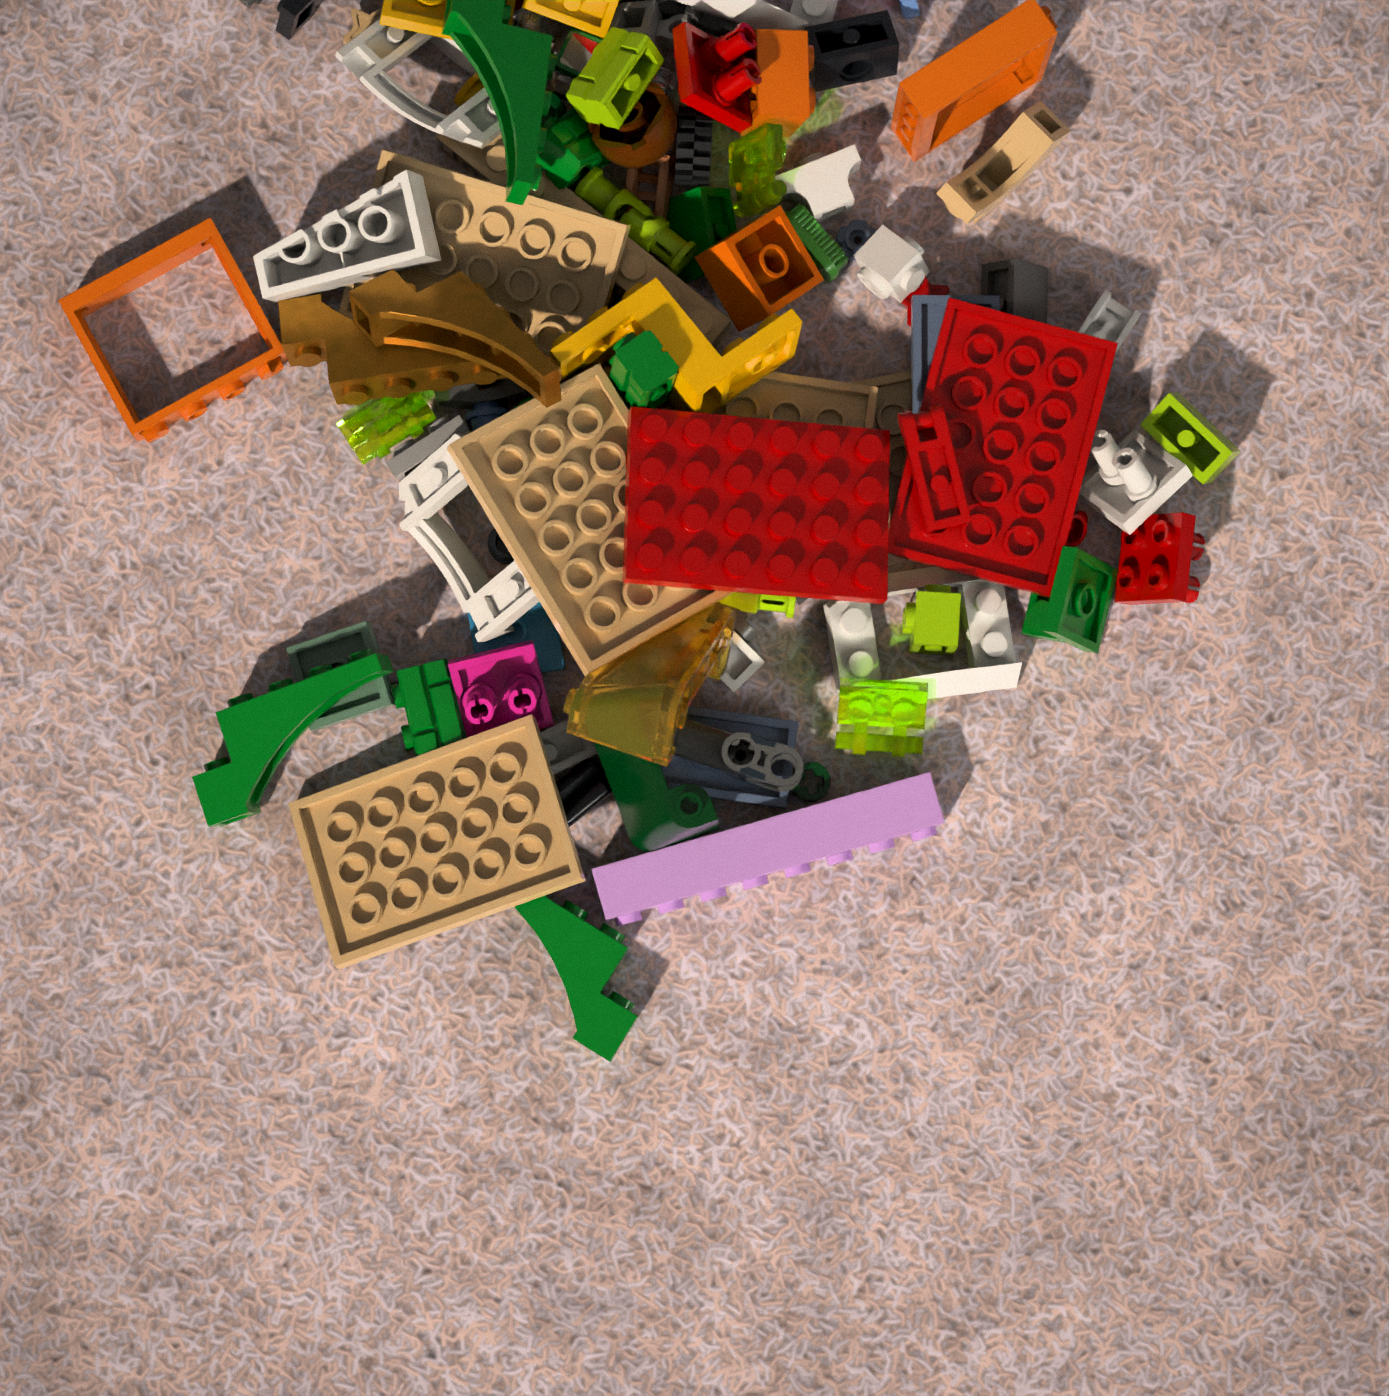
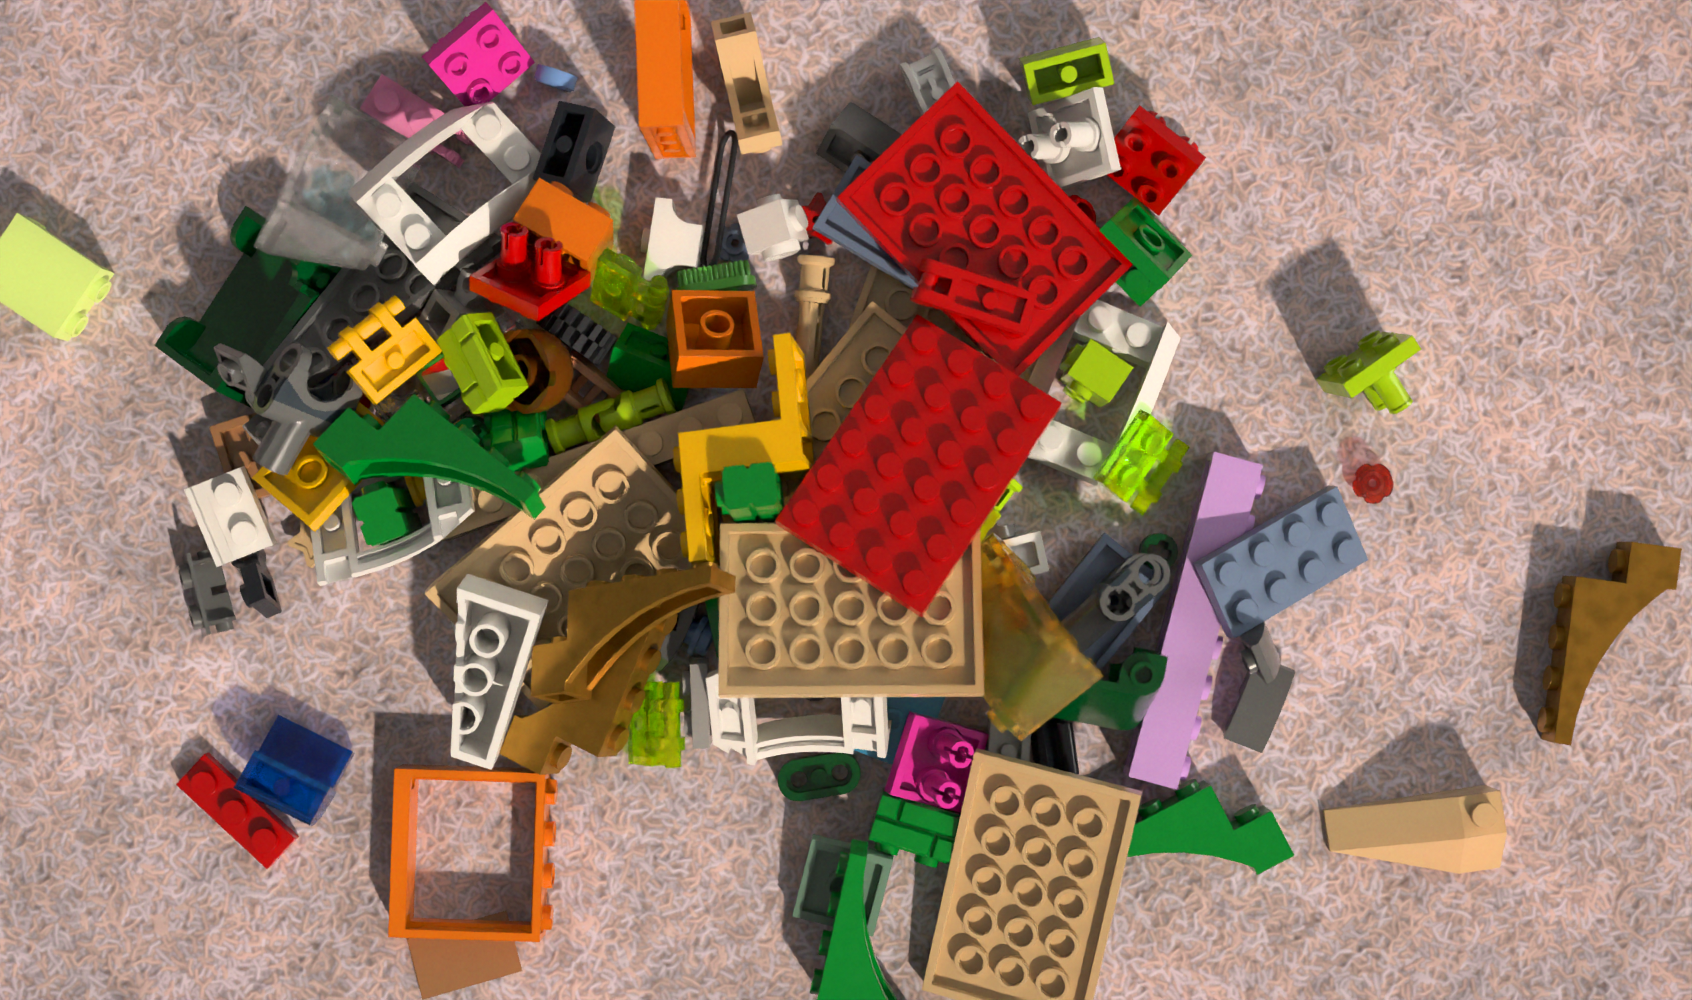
camera: 60 degrees left, 5 degrees up
(71, 382) = (457, 964): none -> medium nougat sticker
(88, 106) = (237, 813): none -> red plate
(156, 134) = (295, 771): none -> clear blue brick
(426, 598) = (819, 776): none -> dark green plate
(432, 74) = (385, 513): none -> green brick
(706, 1182) = (1435, 830): none -> tan wedge
(728, 954) = (1258, 709): none -> dark grey slope
(777, 917) = (1260, 653): none -> dark grey slope
(850, 337) = (812, 299): none -> tan pin
(868, 892) = (1281, 561): none -> sand blue plate
(884, 199) = (727, 190): none -> black piece
(992, 1209) = (1589, 621): none -> pearl gold arch
(998, 929) = (1383, 486): none -> clear red plate
(1089, 870) = (1372, 371): none -> lime plate

